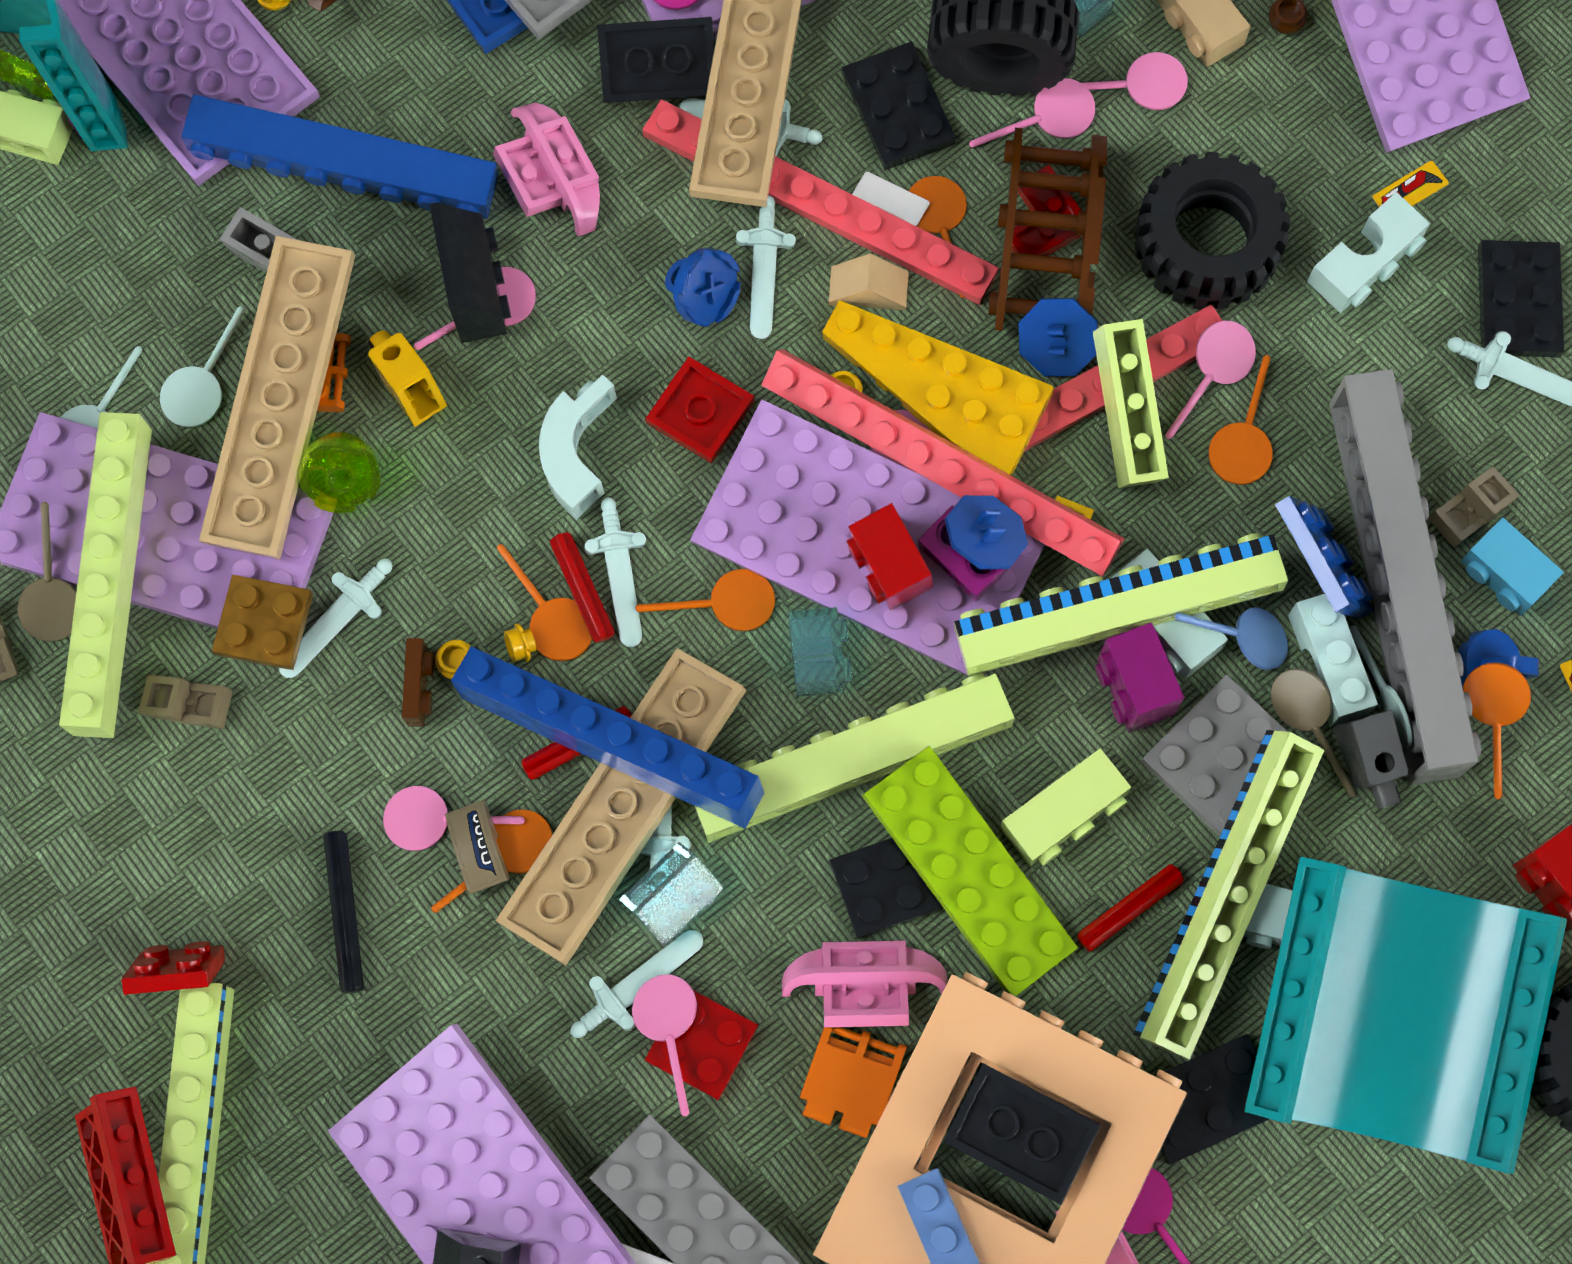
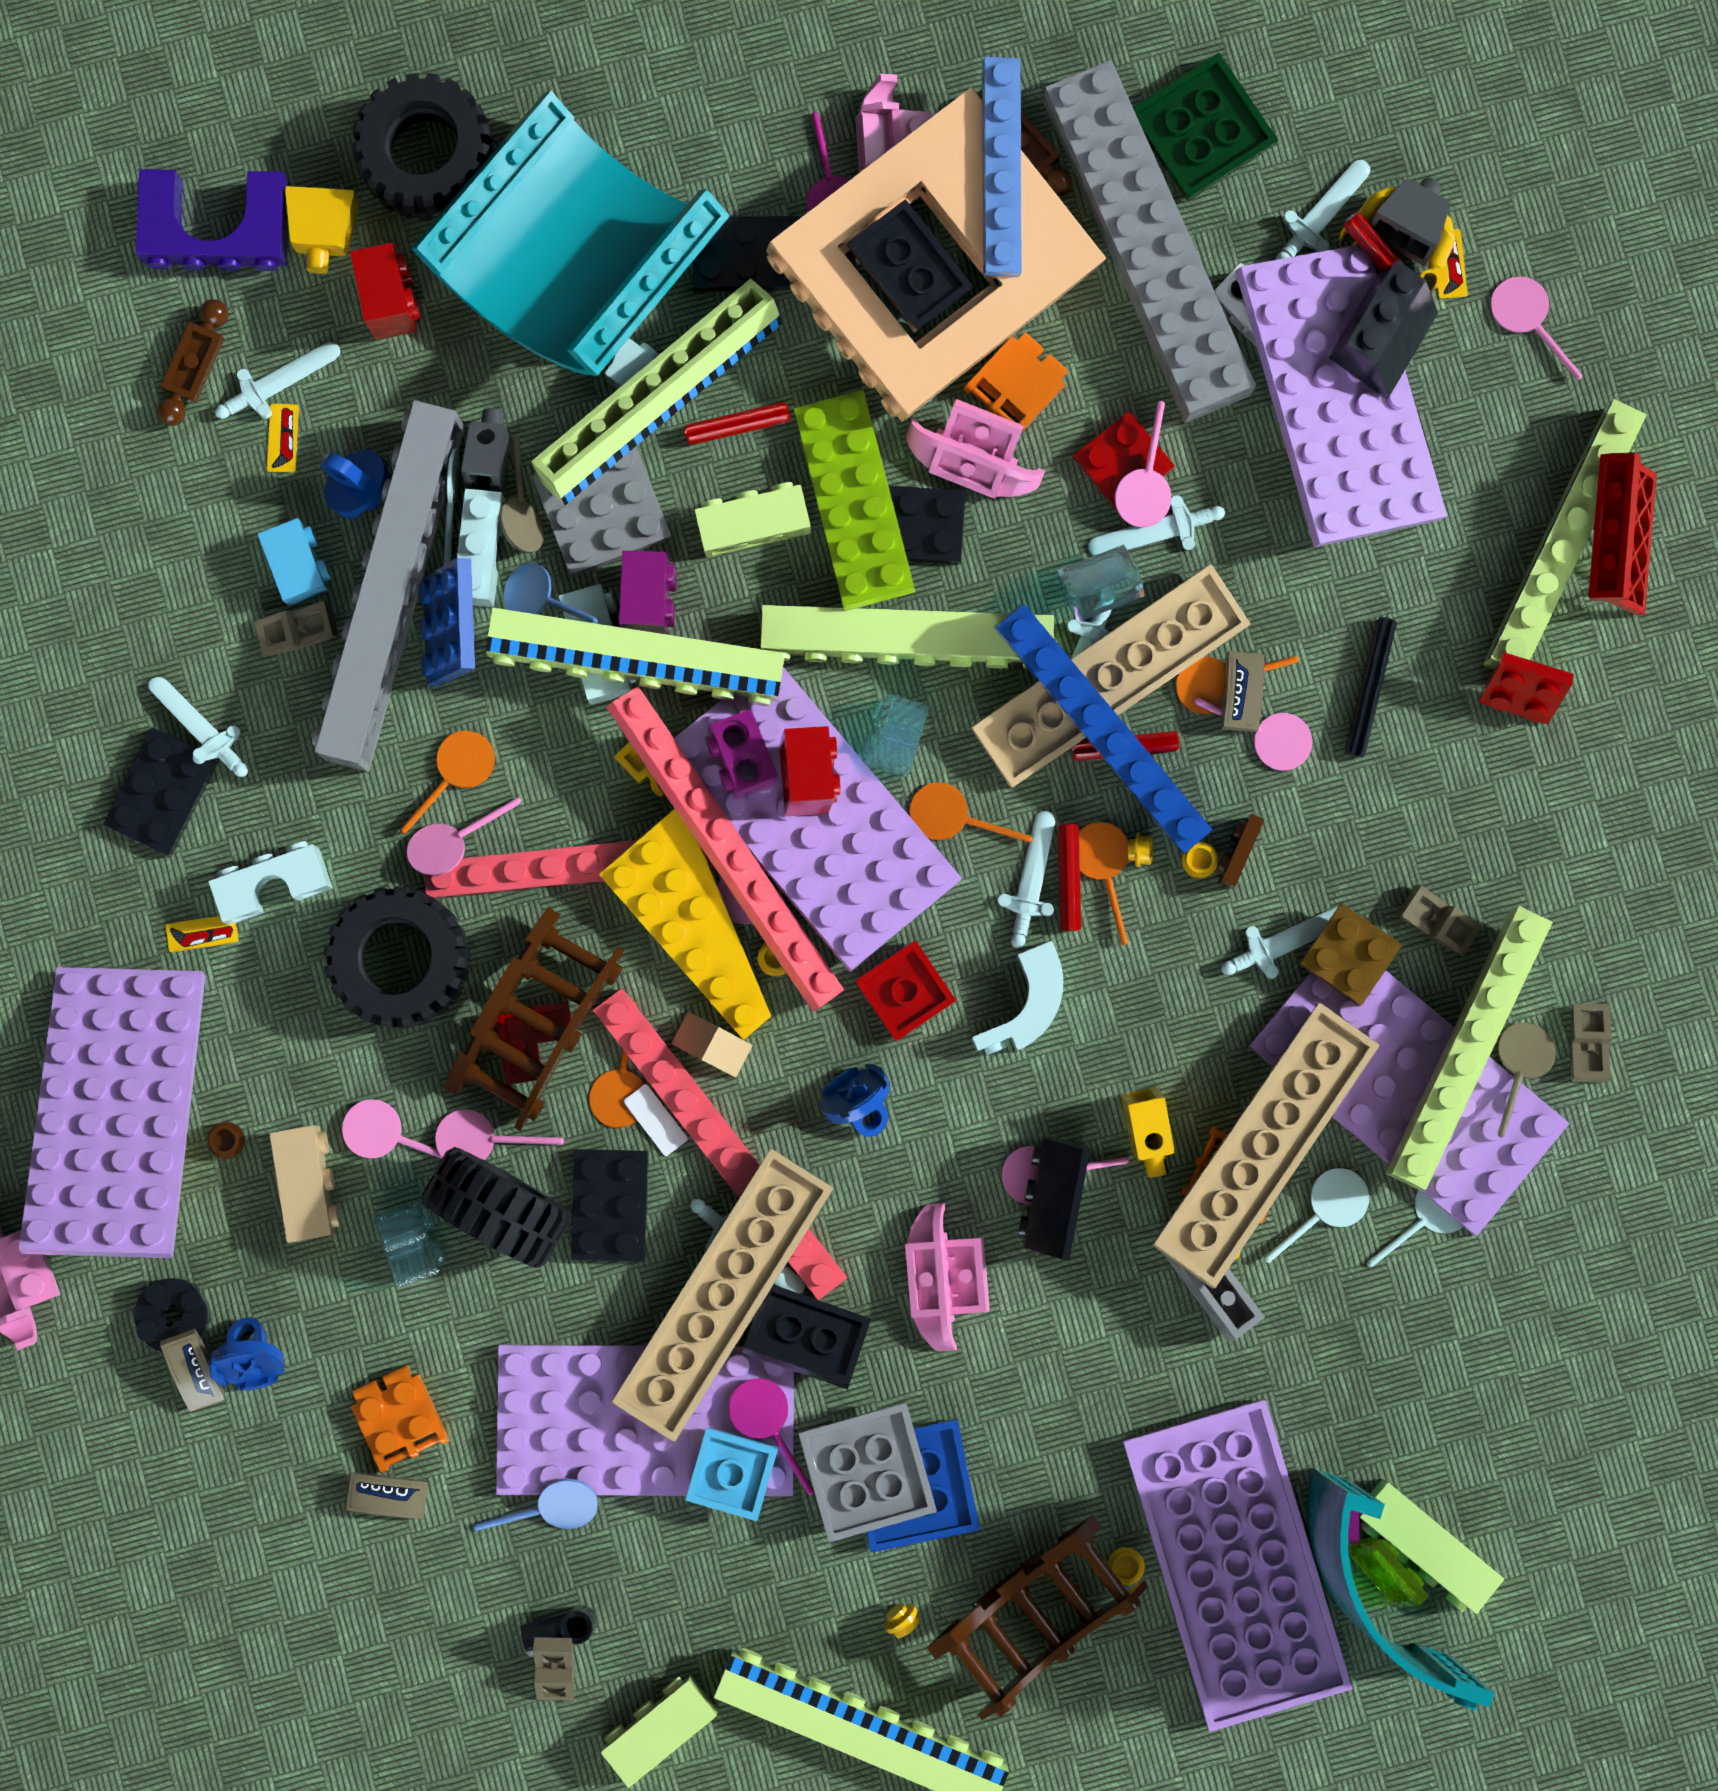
camera: 160 degrees left, 10 degrees up
(337, 156) = (1128, 1360): blue brick -> none
(339, 472) = (1236, 1060): clear neon green cylinder -> none
(765, 243) = (784, 1123): light aqua sword -> none
(986, 532) = (719, 756): blue piece -> none
(1057, 337) = (572, 920): blue piece -> none
(1130, 403) = (543, 827): yellowish green brick -> none
(1498, 699) = (367, 450): orange piece -> none

